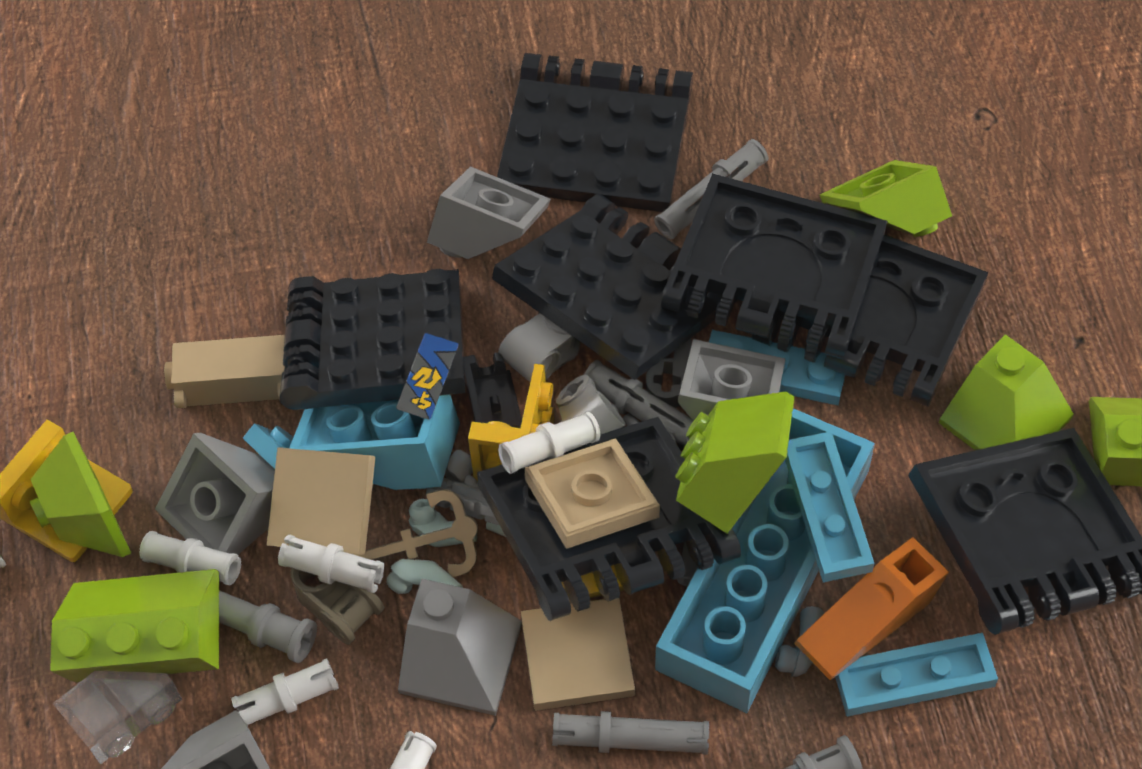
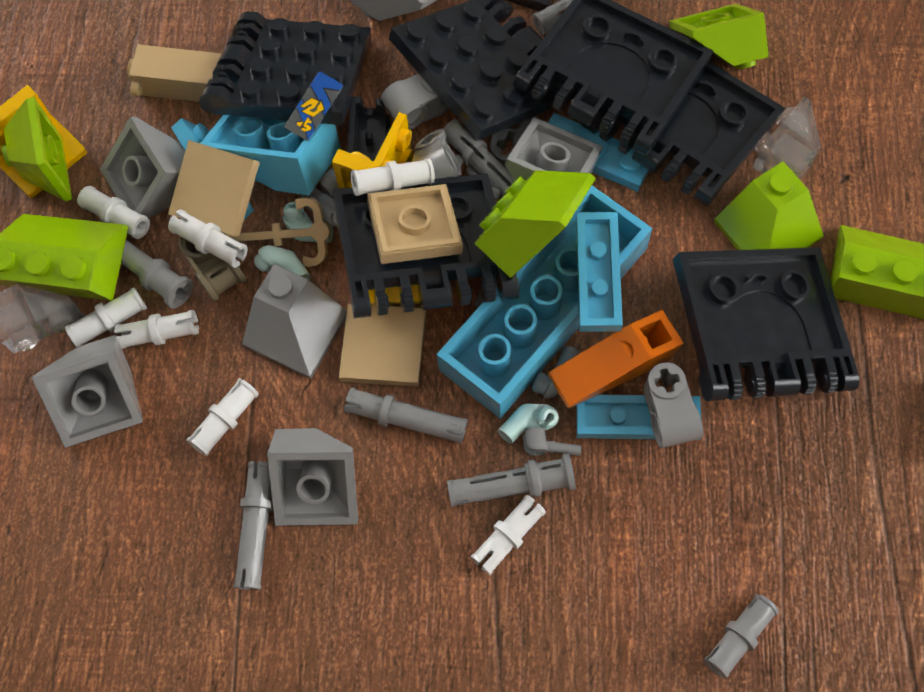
camera: 15 degrees right, 10 degrees up
(214, 692) = (105, 317): none -> white pin
(782, 704) = (528, 417): none -> light aqua arm
(801, 735) = (536, 444): none -> light grey hand
(956, 658) = (673, 412): none -> light grey piece
(1009, 310) = (793, 141): none -> clear slope

